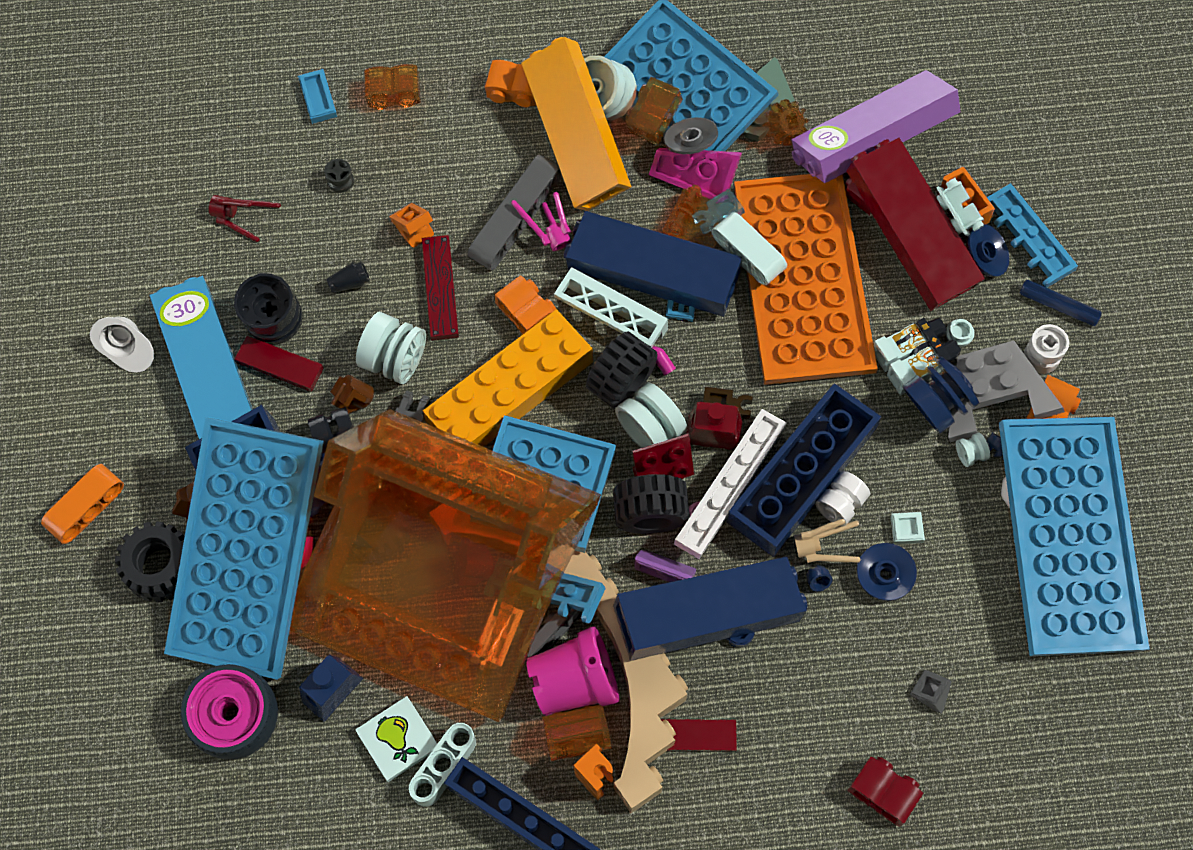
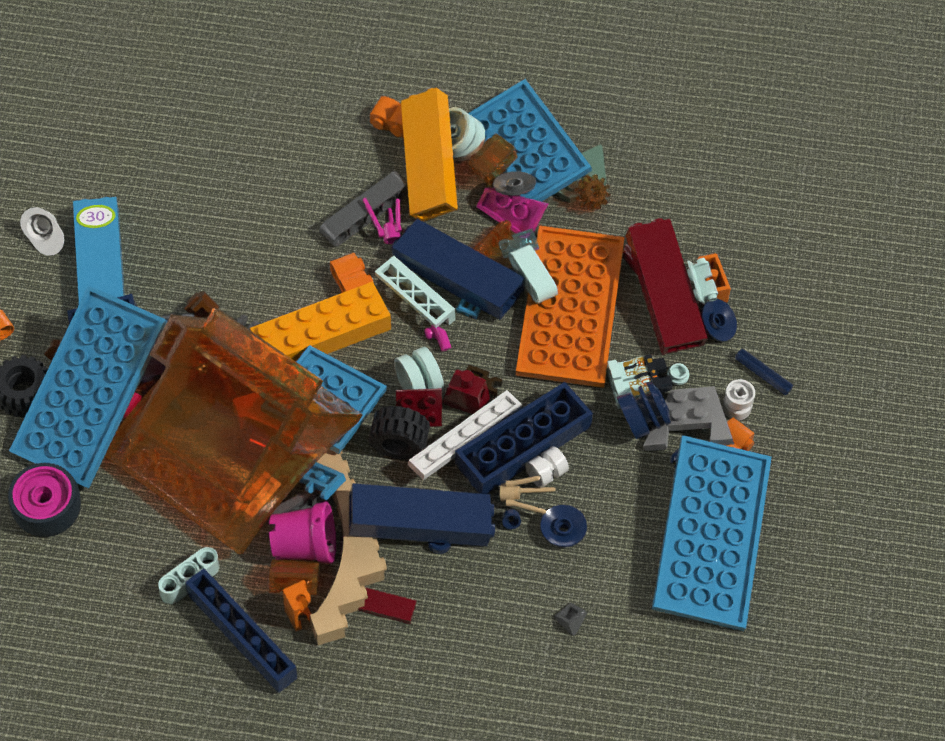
camera: 10 degrees right, 10 degrees down
(226, 207) = (148, 155): dark red plant -> none
(258, 299) = (158, 231): black wheel -> none
(279, 363) = (154, 273): dark red tile -> none
(317, 96) = (241, 92): dark azure tile -> none
(328, 686) = (121, 501): dark blue torso -> none
(333, 173) = (235, 148): pearl dark grey wheel -> none
(349, 277) = (225, 225): black cone -> none
(390, 347) = (240, 279): light aqua wheel -> none
(392, 86) = (300, 98): clear orange brick -> none
(397, 739) = (160, 550): light aqua tile -> none
(413, 223) = (285, 200): orange slope -> none
(440, 287) = (291, 249): dark red tile -> none
(621, 369) = (407, 332): black tyre -> none
(662, 567) = (388, 478): medium lavender slope -> none
(886, 791) = (512, 675): dark red brick -> none
(889, 115) = (680, 204): brick -> none
(907, 528) = (591, 501): light aqua tile -> none
(972, 449) = (658, 457): light aqua wheel -> none
(1032, 234) = (757, 317): dark azure hinge -> none

